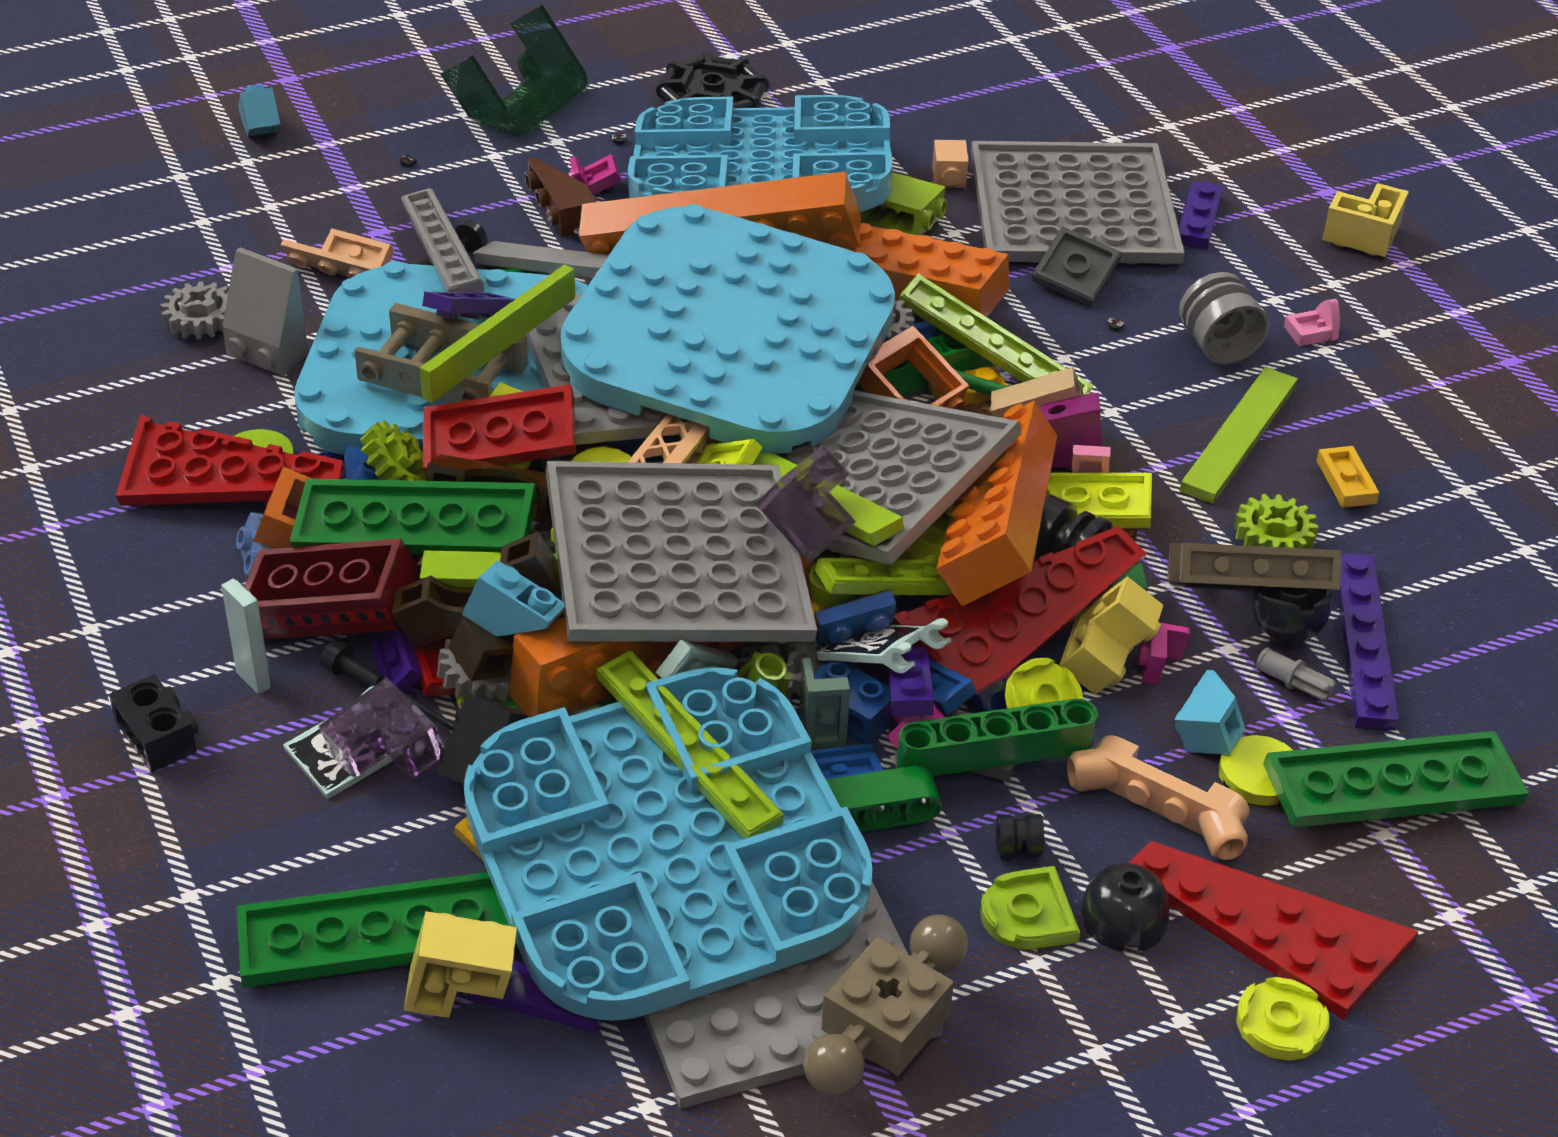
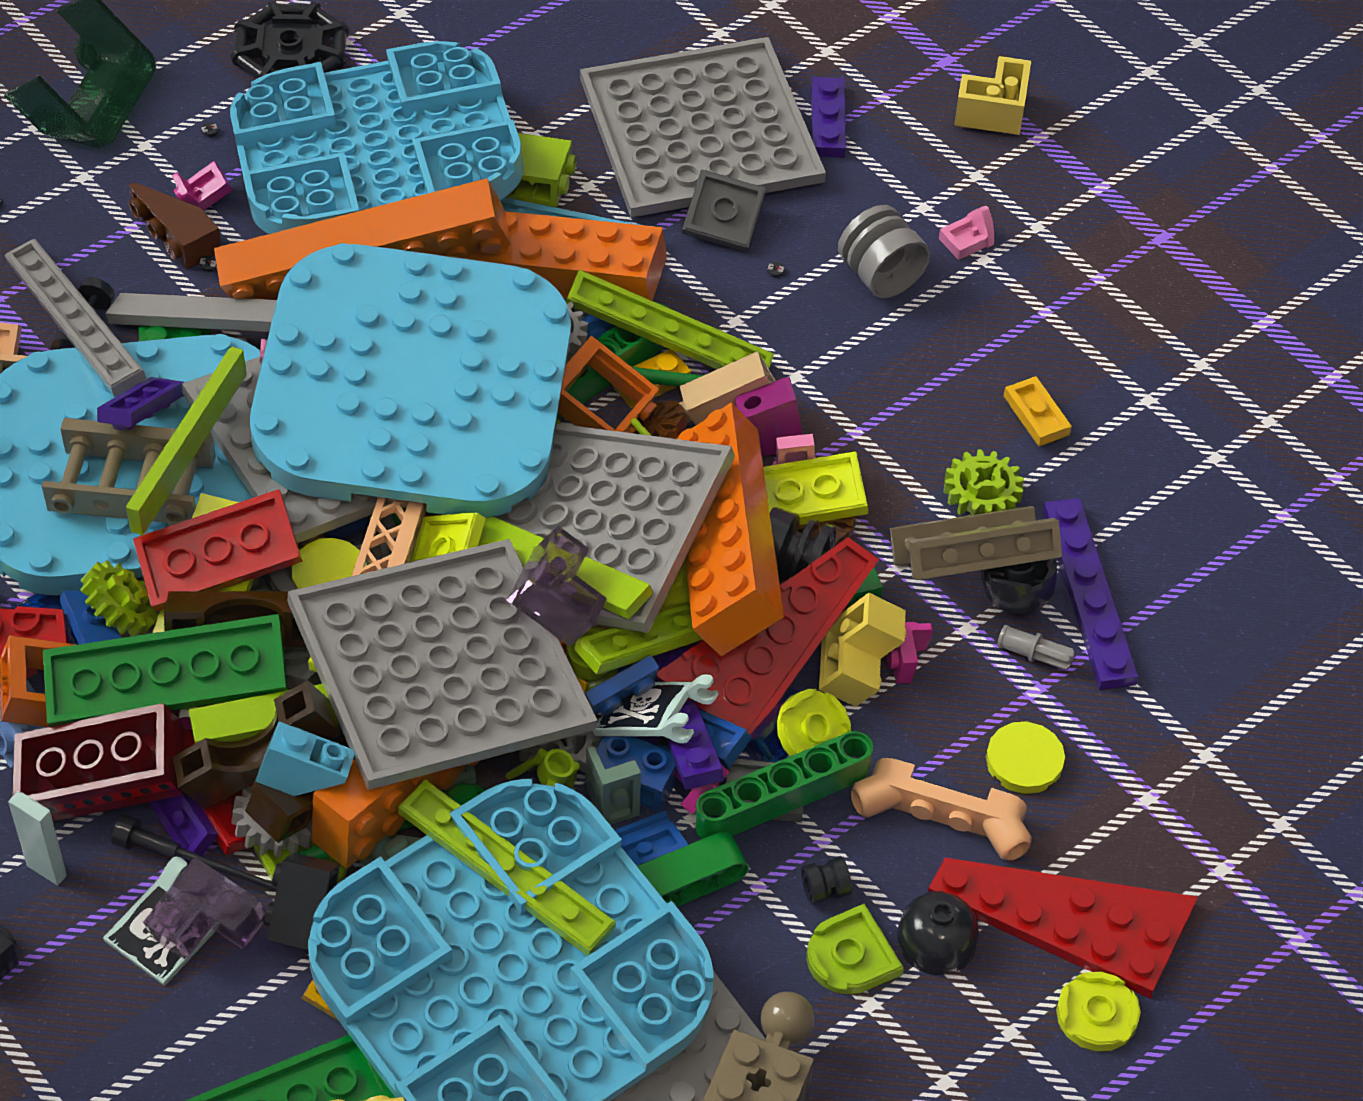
camera: 15 degrees left, 10 degrees up
(693, 656) = (485, 775): light aqua tile -> none
(950, 163) = (564, 102): light nougat brick -> none
(1210, 718) = (970, 715): medium azure slope -> none
(1238, 435) = (924, 381): lime tile -> none
(1394, 779) = (1147, 743): green plate -> none

